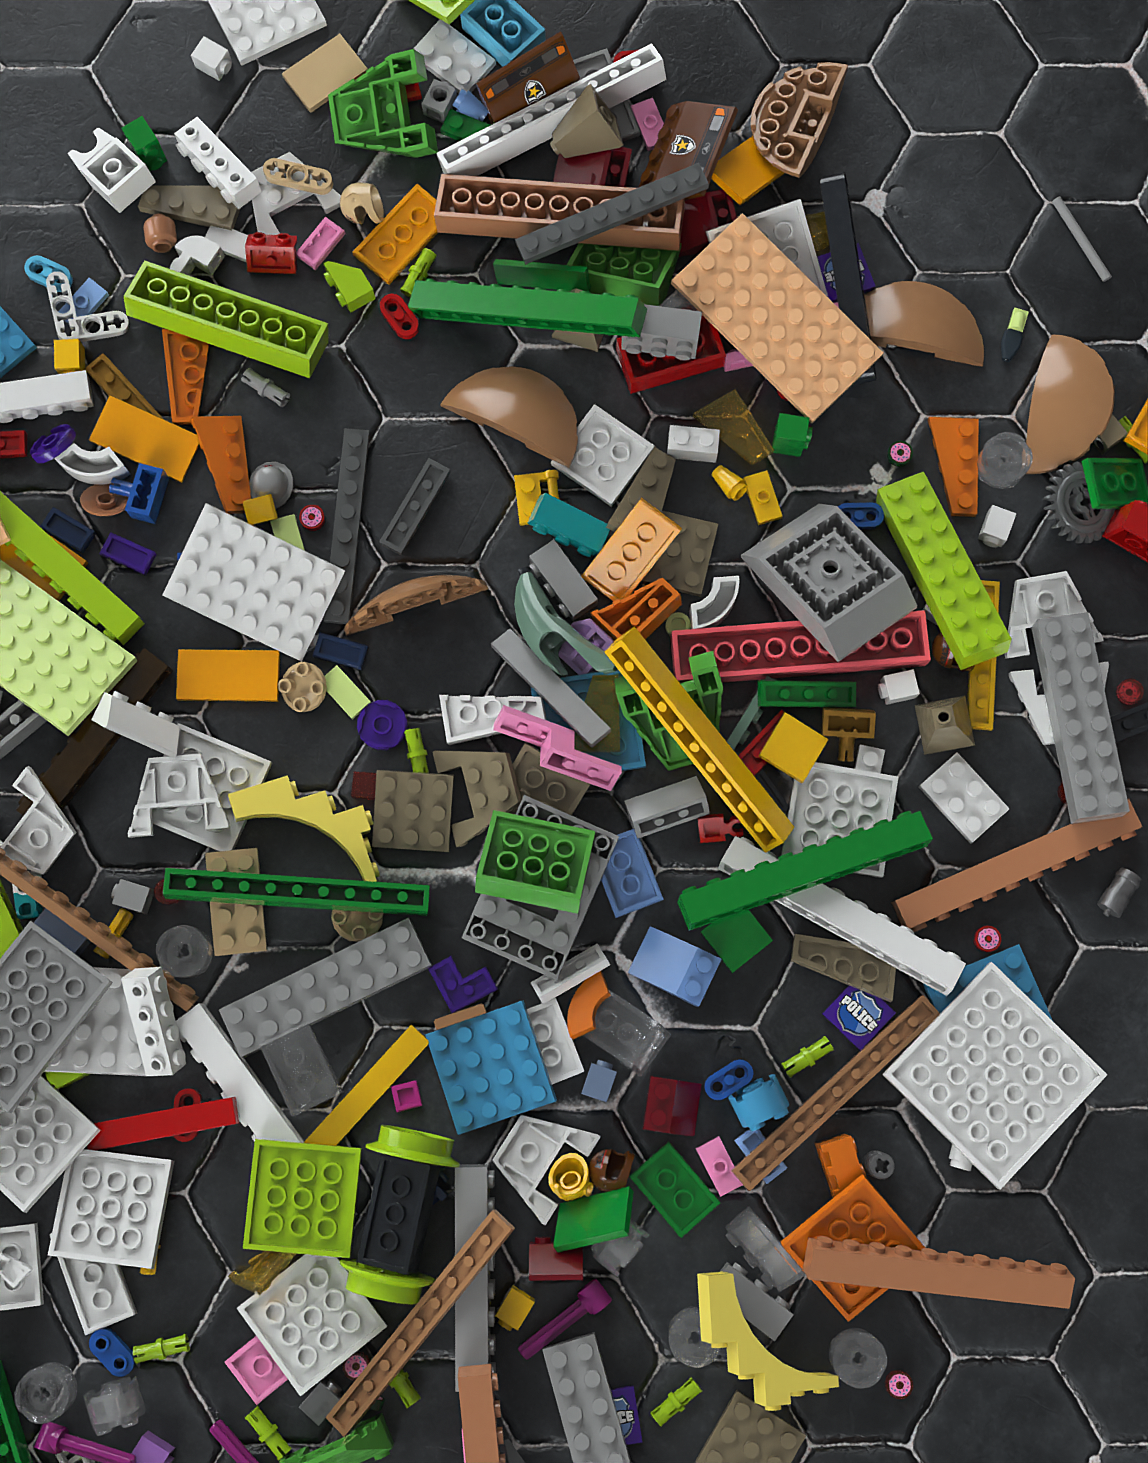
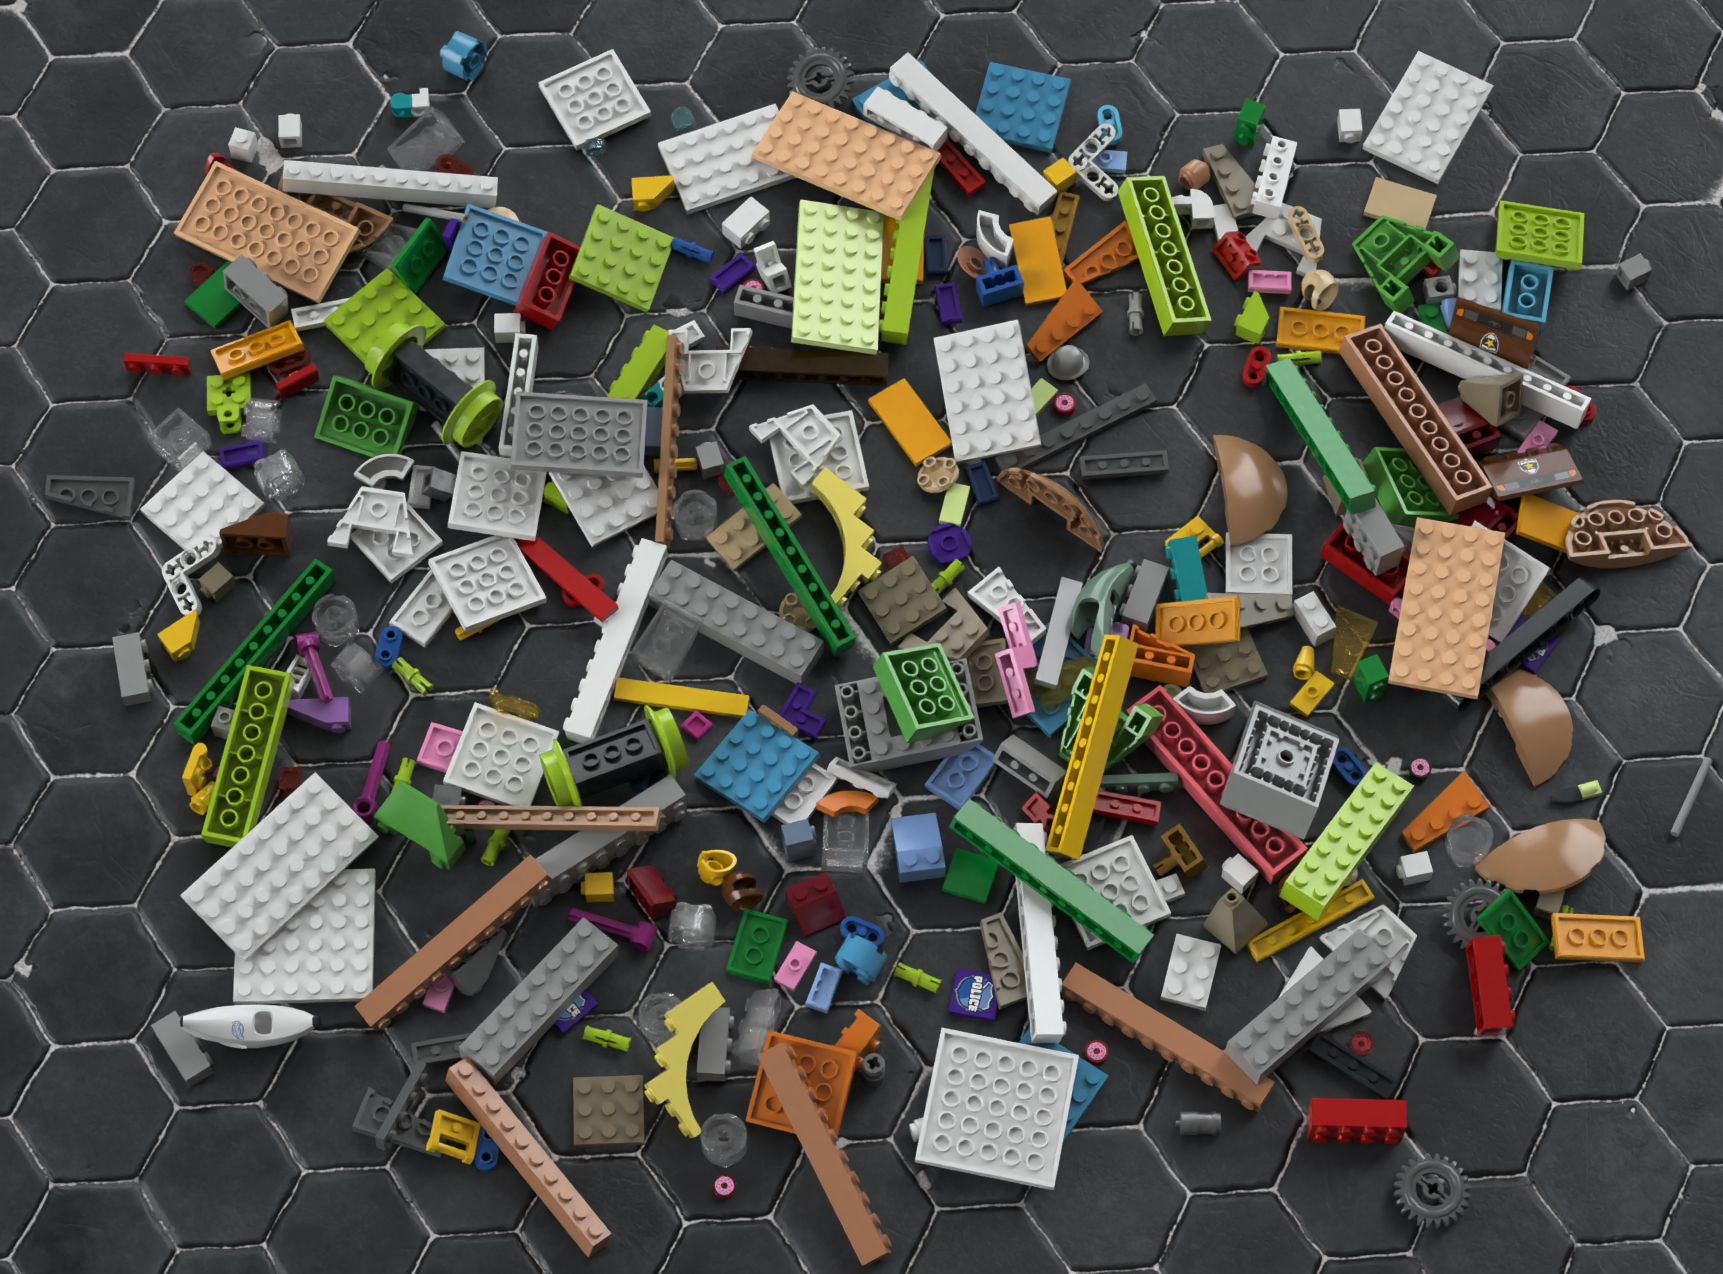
camera: 55 degrees right, 15 degrees down
(52, 446) = (987, 204): dark purple tile -> none
(113, 171) = (1214, 116): white brick -> none
(138, 723) = (832, 380): white slope -> none
(154, 1021) = (633, 522): white brick -> none
(260, 509) = (1043, 365): yellow slope -> none
(302, 1198) = (580, 693): lime plate -> none
(530, 1152) = (714, 830): white wing -> none
(541, 275) = (1358, 437): green tile -> none
(593, 1219) = (698, 893): green tile -> none
(612, 213) = (1436, 447): dark grey plate -> none
(793, 747) = (1137, 824): yellow tile -> none
(806, 694) = (1185, 810): green tile -> none
(835, 1093) = (898, 1005): medium nougat plate -> none

